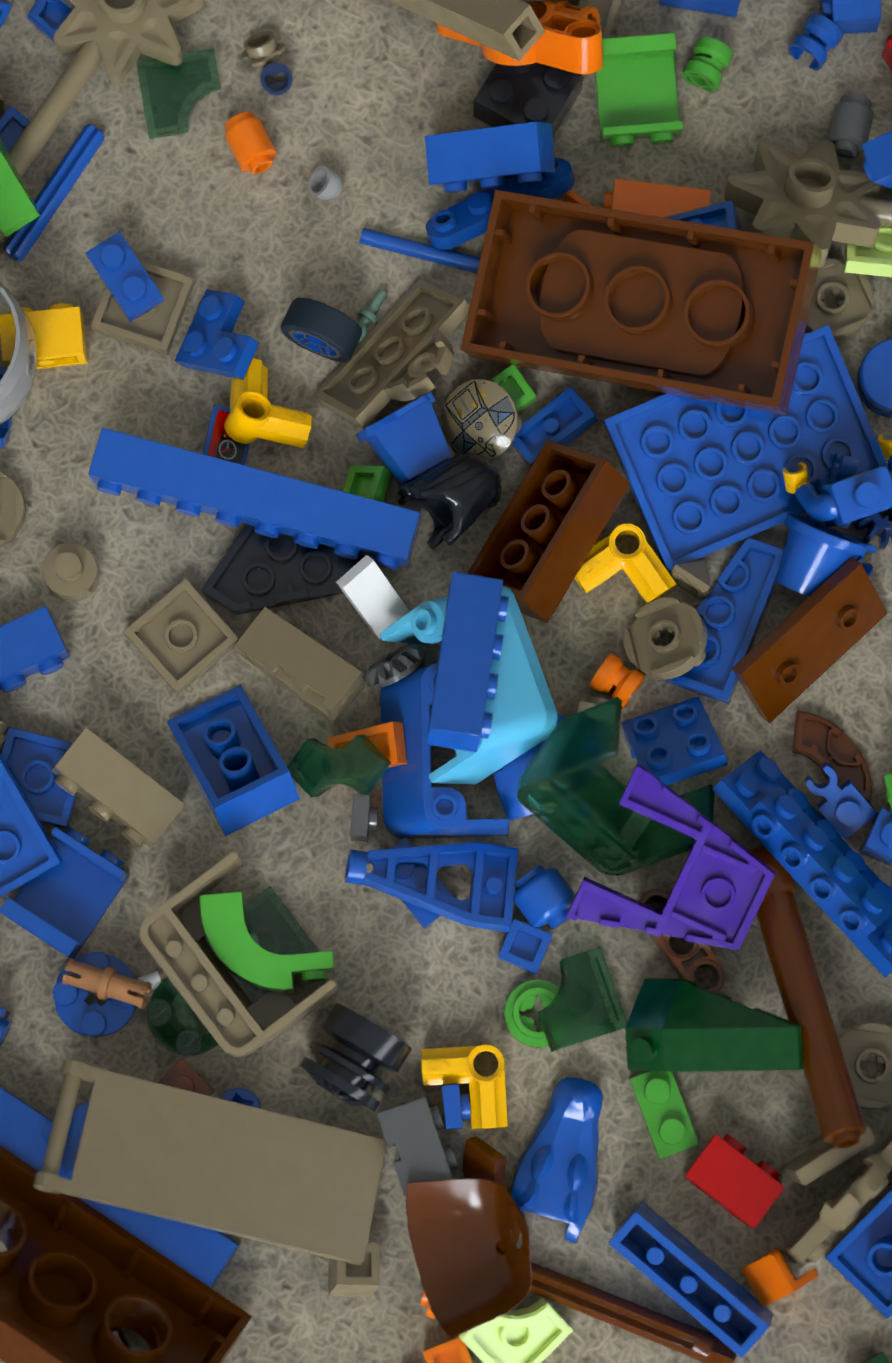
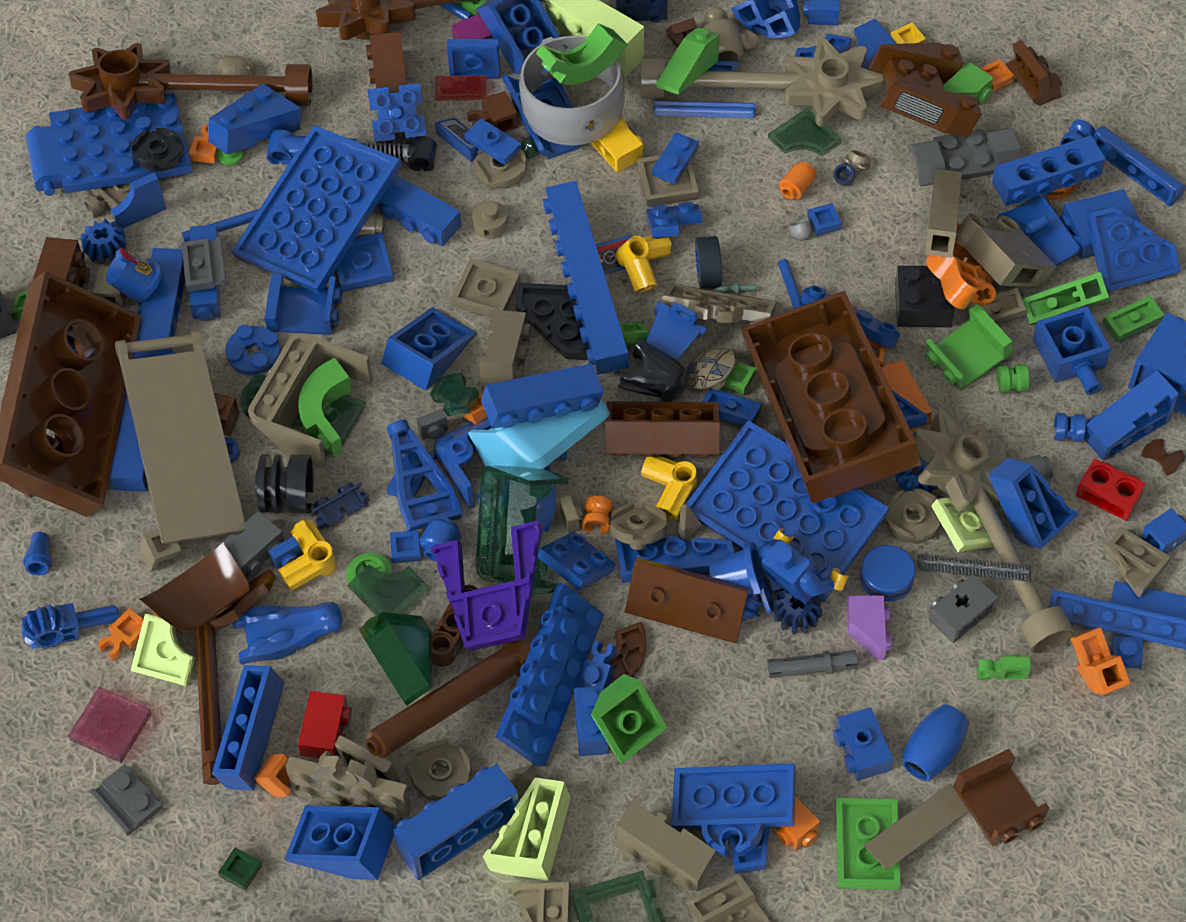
camera: 60 degrees right, 20 degrees down
(107, 983) = (259, 344): medium nougat pin -> none
(116, 789) = (375, 295): dark tan brick -> none
(330, 145) = (824, 219): none -> blue plate
(372, 595) = (567, 352): white tile -> none
(408, 982) = (347, 497): none -> dark blue hinge
(490, 156) = (870, 289): blue brick -> none
(664, 1112) = (347, 670): bright green plate -> none

